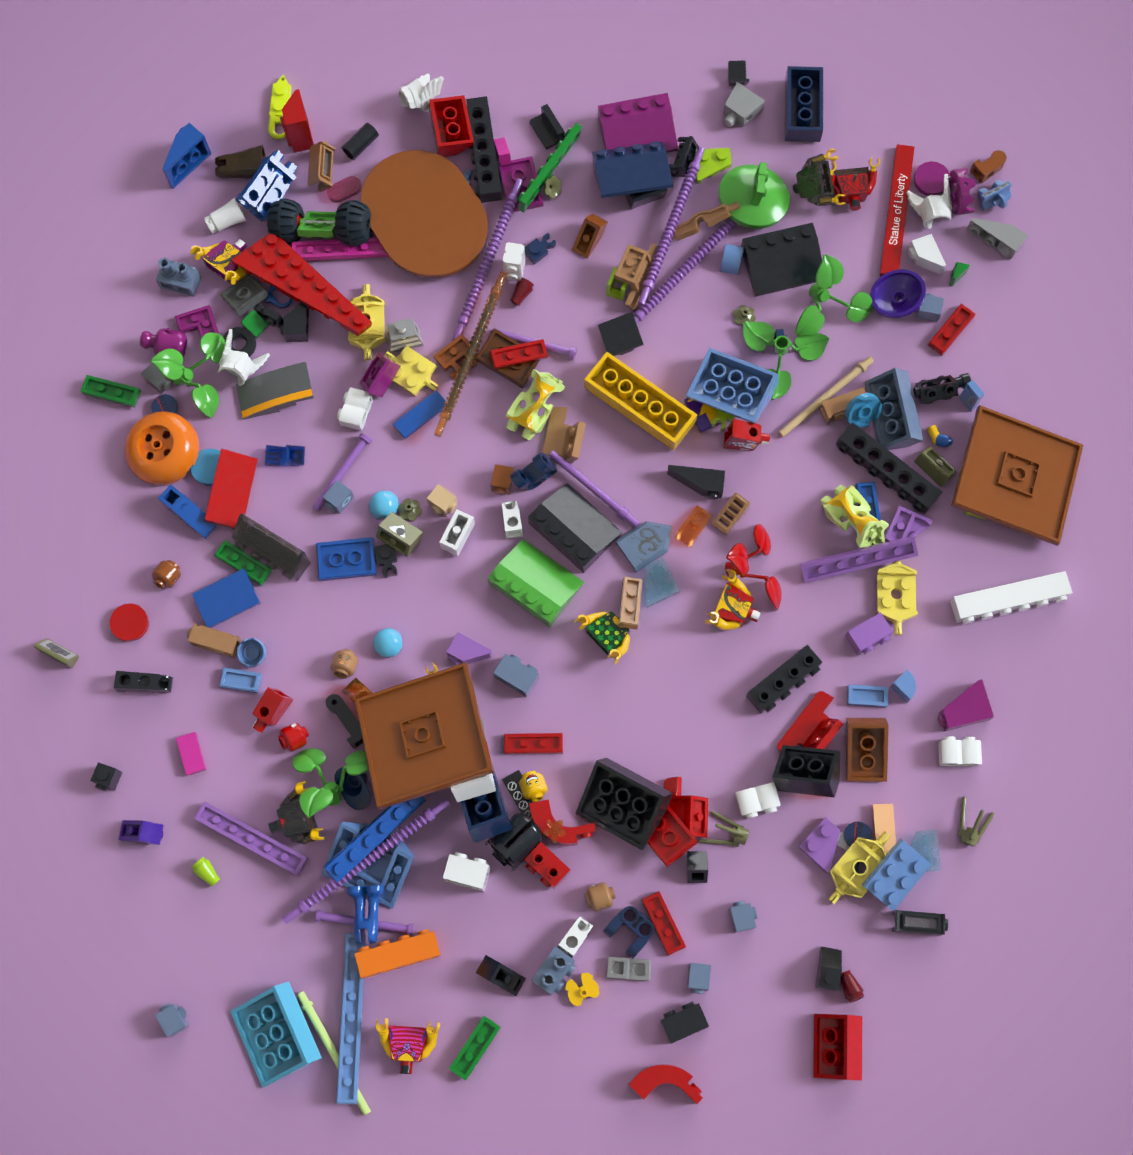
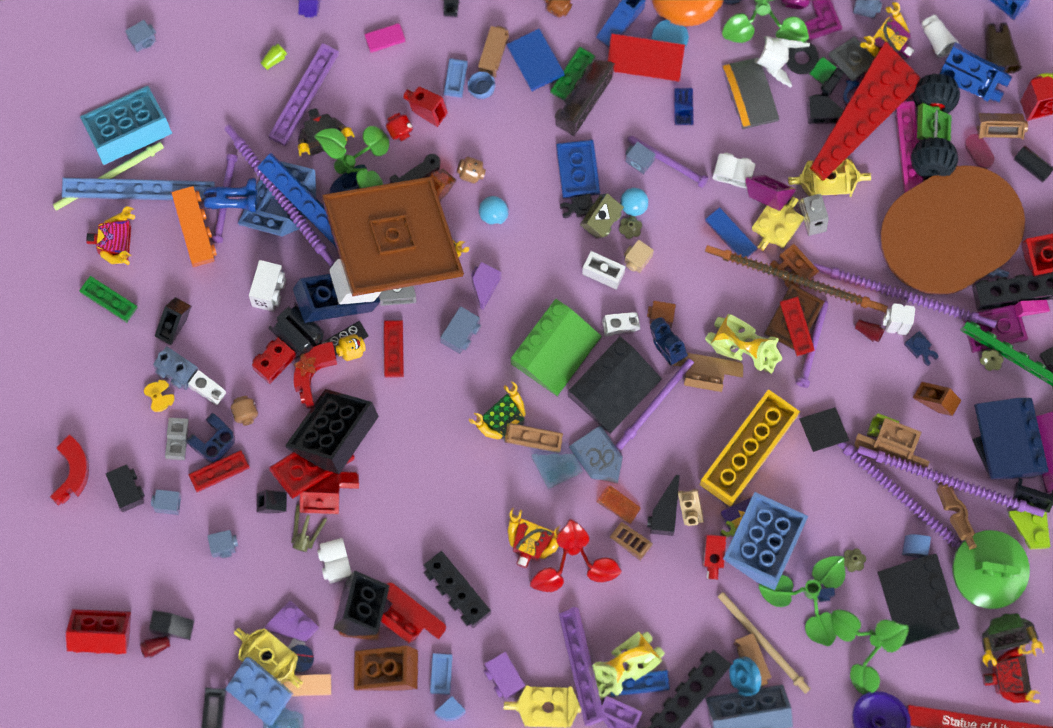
camera: 85 degrees right, 0 degrees up
(700, 455) = (691, 507): none -> tan hips

